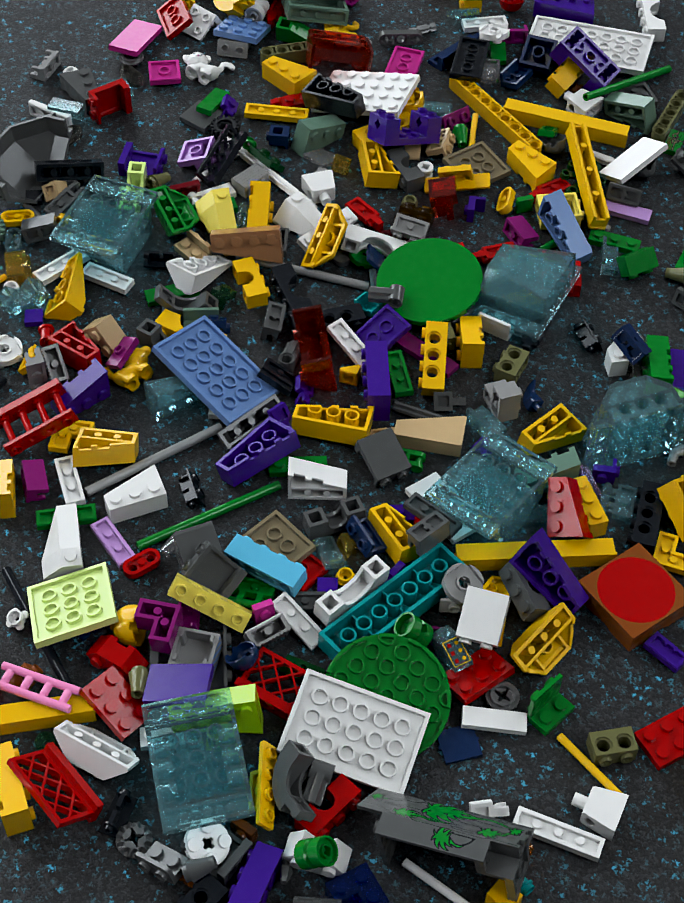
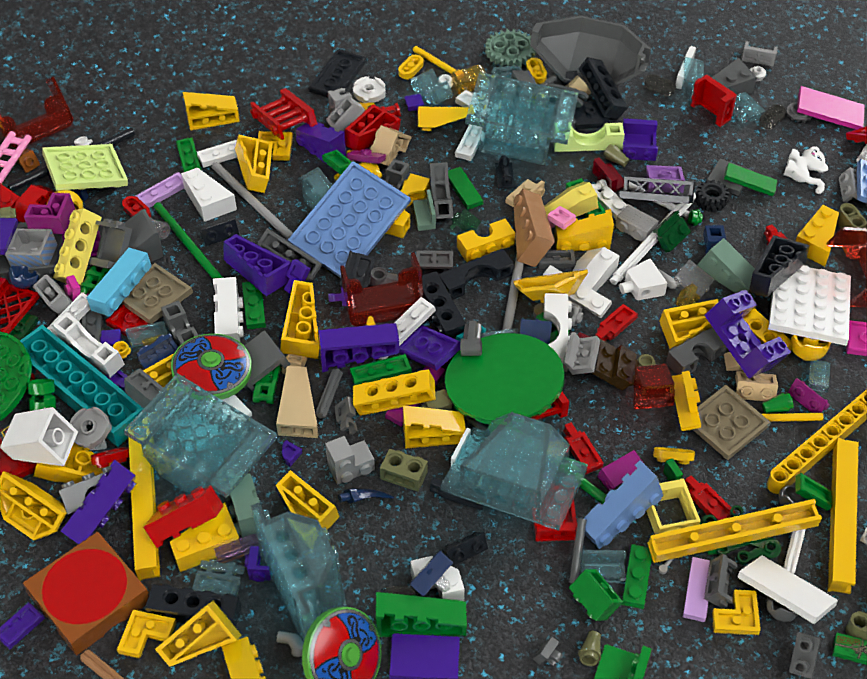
camera: 85 degrees right, 0 degrees up
(34, 479) = (222, 127): magenta hinge -> none
(63, 545) = (151, 160): white wedge -> none
(127, 374) = (336, 161): none -> green tile
(164, 72) = (785, 138): dark pink plate -> none
(174, 211) = (565, 167): green wedge -> none
(196, 273) = (484, 194): white wedge -> none
(220, 323) = (419, 220): dark blue bracket -> none
(229, 106) = (749, 193): dark purple plate -> none
(248, 217) = (561, 218): none -> bright pink bracket
(275, 112) = (754, 232): yellow plate -> none
(395, 484) = (214, 364): none -> dish
(427, 168) = (702, 372): white wheel -> none
(475, 204) = (651, 420): dark purple bracket -> none
(484, 421) = (313, 453): clear light blue bracket -> none
(493, 578) = (104, 458): none -> red plate
(530, 164) = (742, 476): yellow wedge -> none
(597, 266) = (577, 553): none -> dark grey bar
(652, 191) = (741, 619): none -> yellow plate

